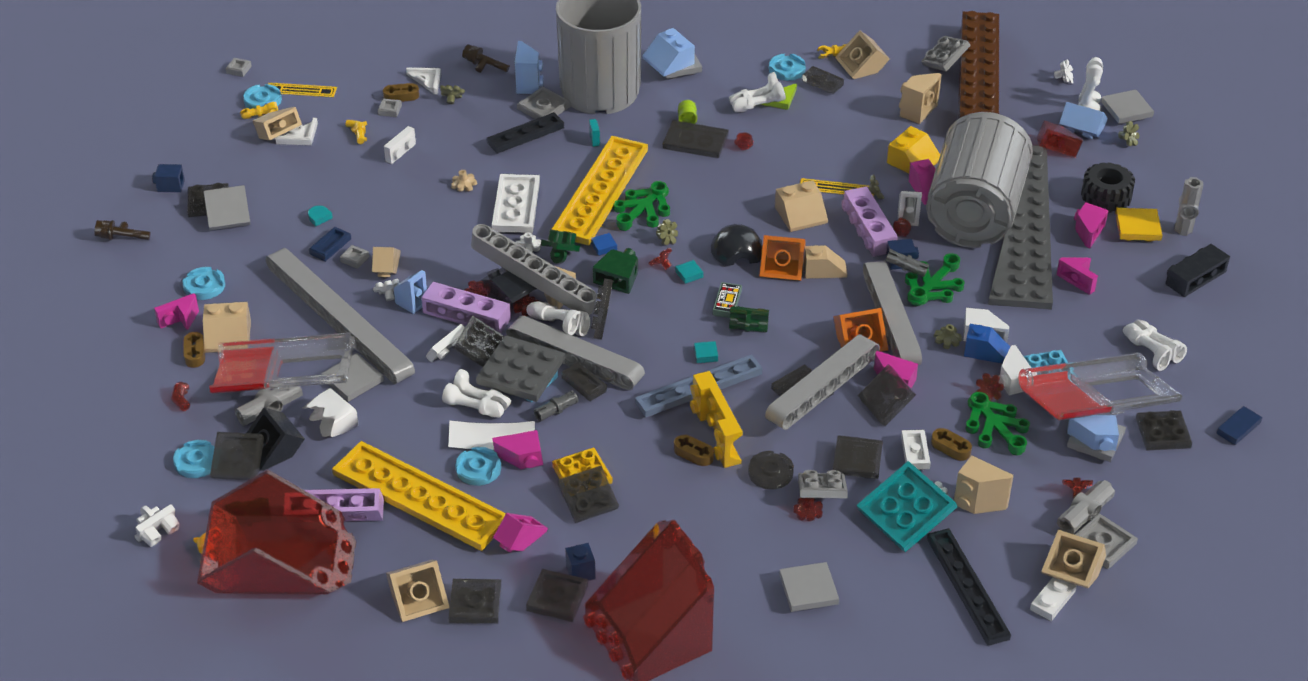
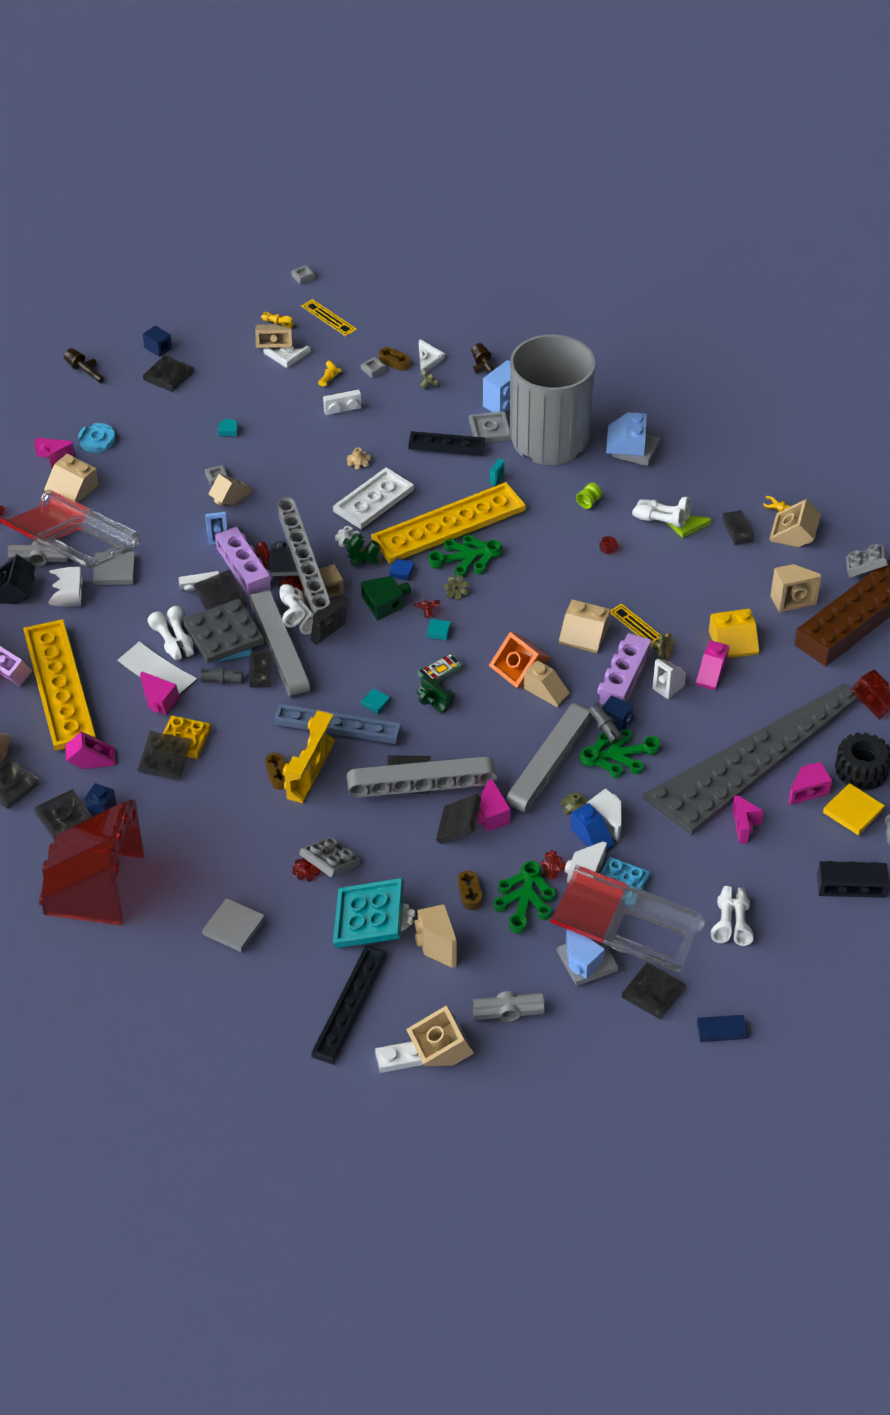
camera: 40 degrees right, 5 degrees up
(190, 350) = (35, 485): pearl gold beam -> none
(227, 207) = (167, 386): light grey tile -> none
(261, 95) = (293, 307): medium azure tile -> none
(330, 244) = (211, 455): dark blue tile -> none
(340, 315) = (153, 516): light grey beam -> none
(386, 288) = (204, 510): white plant -> none
(478, 466) = (121, 687): medium azure tile -> none
(695, 139) = (574, 521): clear smoke tile -> none
(736, 242) = (495, 626): black cylinder -> none
(770, 470) = (315, 822): clear smoke tile -> none
(787, 67) = (724, 499): medium azure tile -> none
(858, 456) = (385, 853): clear smoke tile -> none
(865, 323) = (509, 755): orange slope -> none
(902, 227) = (647, 692): clear red plate -> none
(915, 448) = (435, 876): white plate -> none
(979, 179) = (733, 686): light grey container -> none
(1077, 485) = (522, 985): clear red plant -> none
(1115, 538) = (493, 1042): light grey tile -> none

